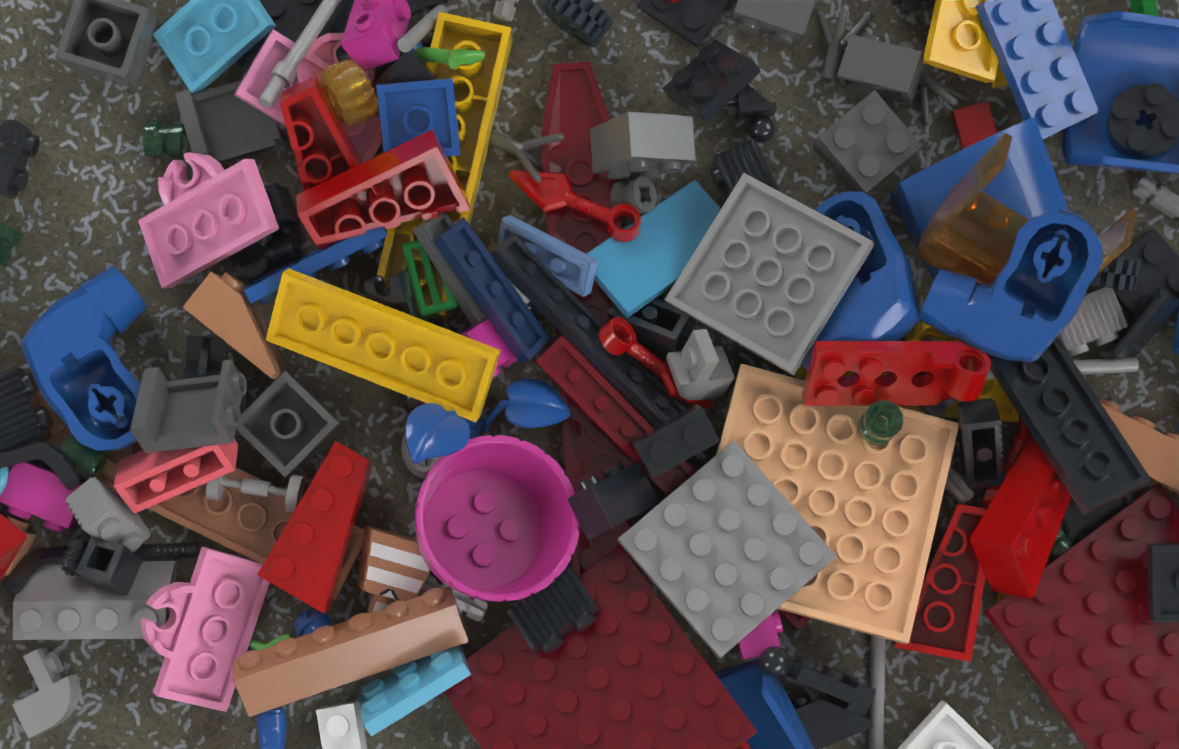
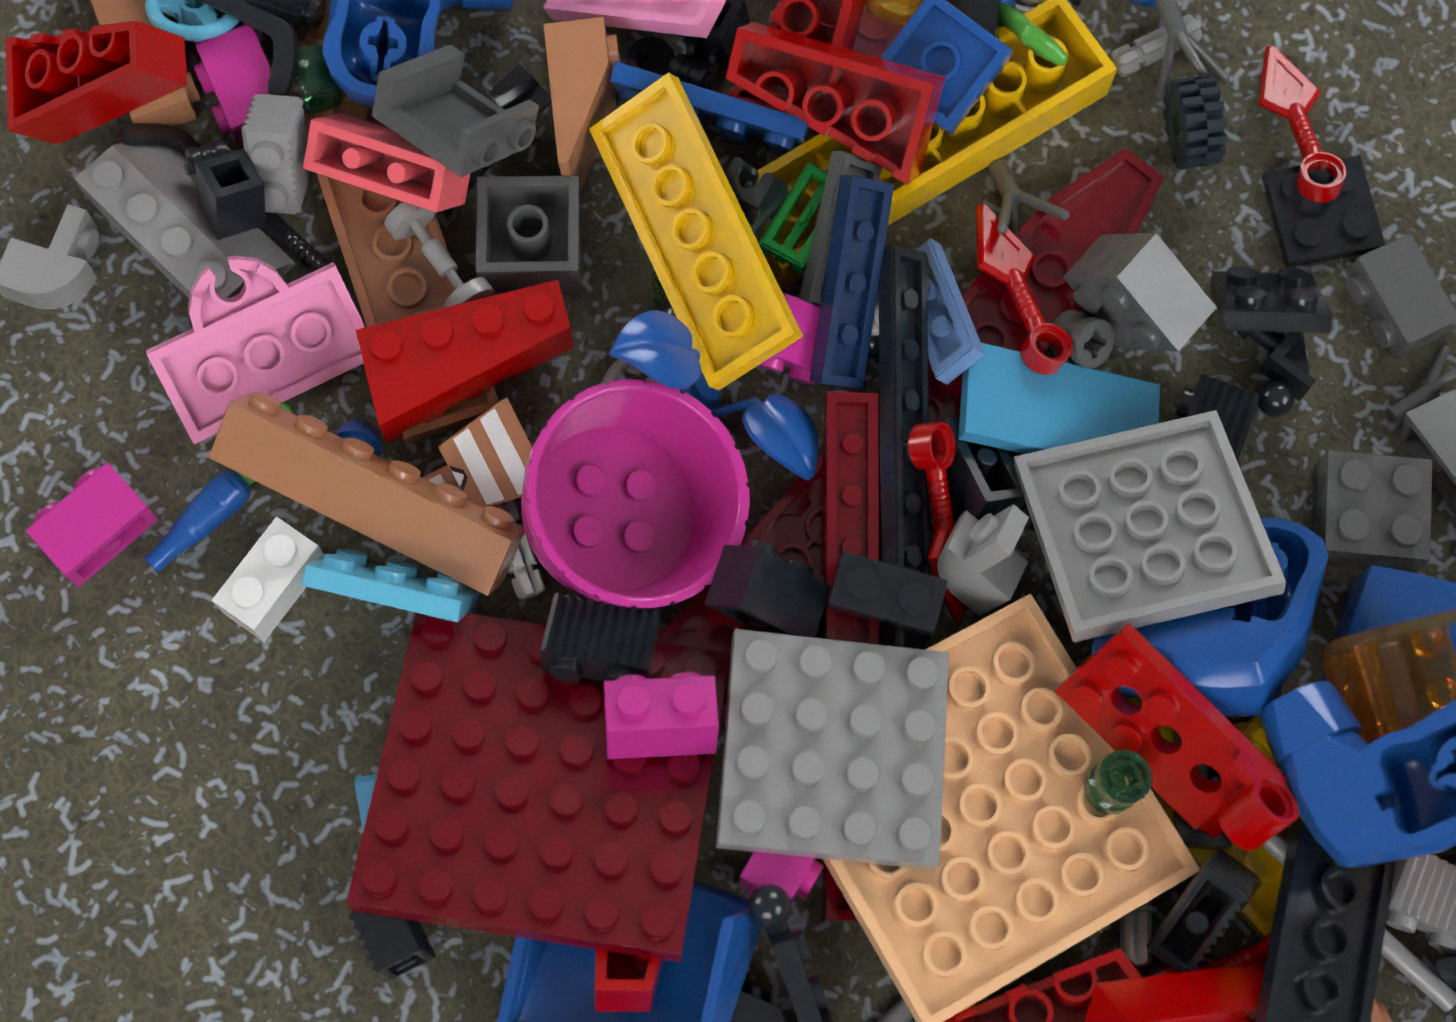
camera: 45 degrees right, 10 degrees down
(625, 620) = (660, 716): none -> dark pink brick

